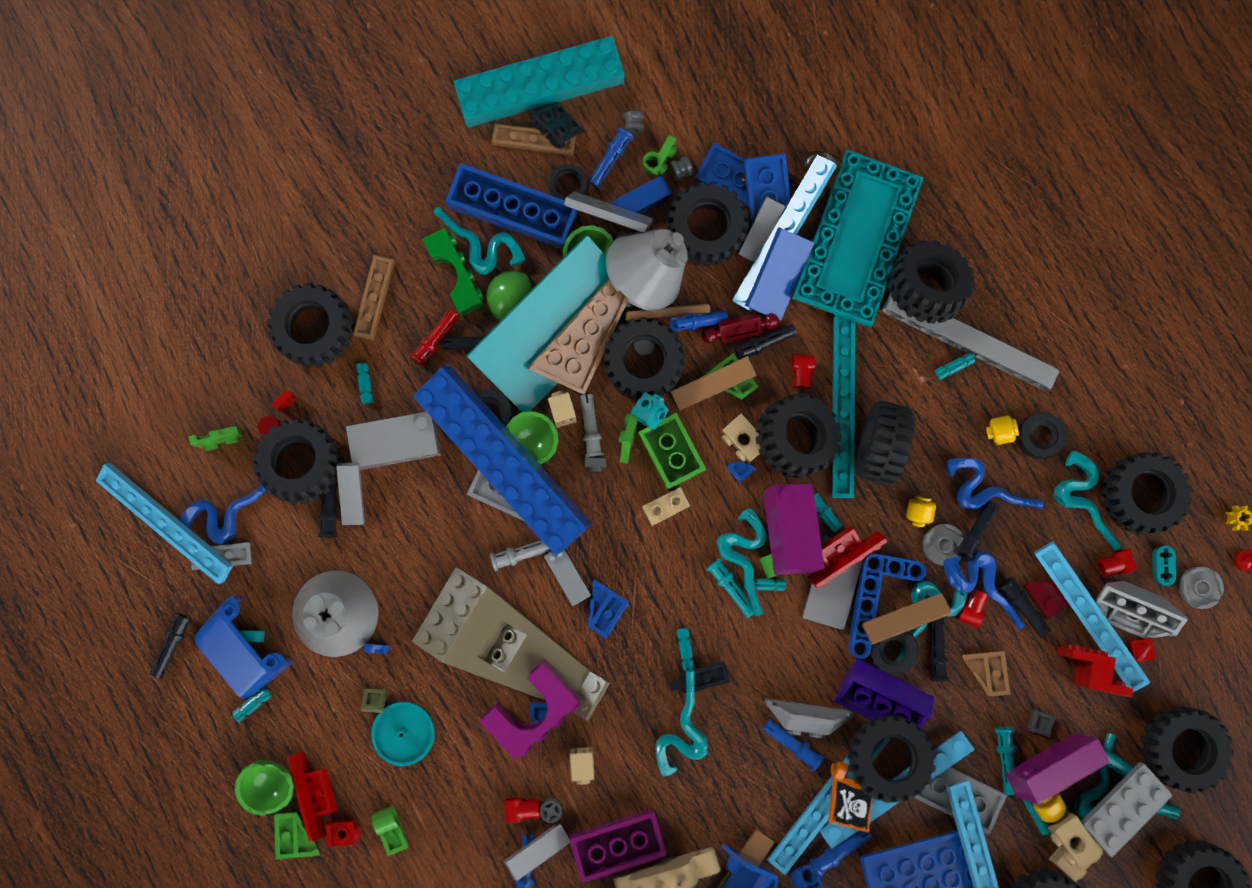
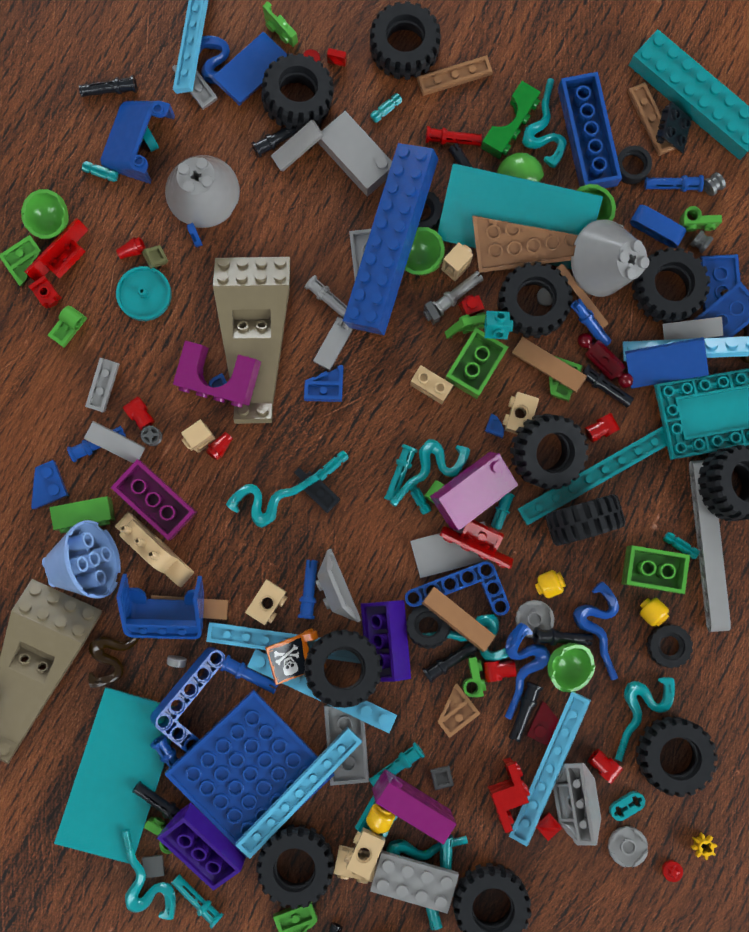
camera: 65 degrees right, 0 degrees up
(241, 493) = (247, 69): none -> blue tile
(350, 719) = (131, 248): none -> red cone
(470, 829) = (102, 385): none -> light grey hinge
(601, 749) = (218, 447): none -> red cone
(608, 211) = (631, 201): light grey tile -> none
(612, 422) = (471, 305): none -> red brick
(785, 805) = (256, 608): none -> tan brick
(957, 628) = (475, 667): none -> bright green plate
(965, 405) = (655, 569): none -> bright green brick
(1010, 540) = (571, 667): none -> bright green cylinder

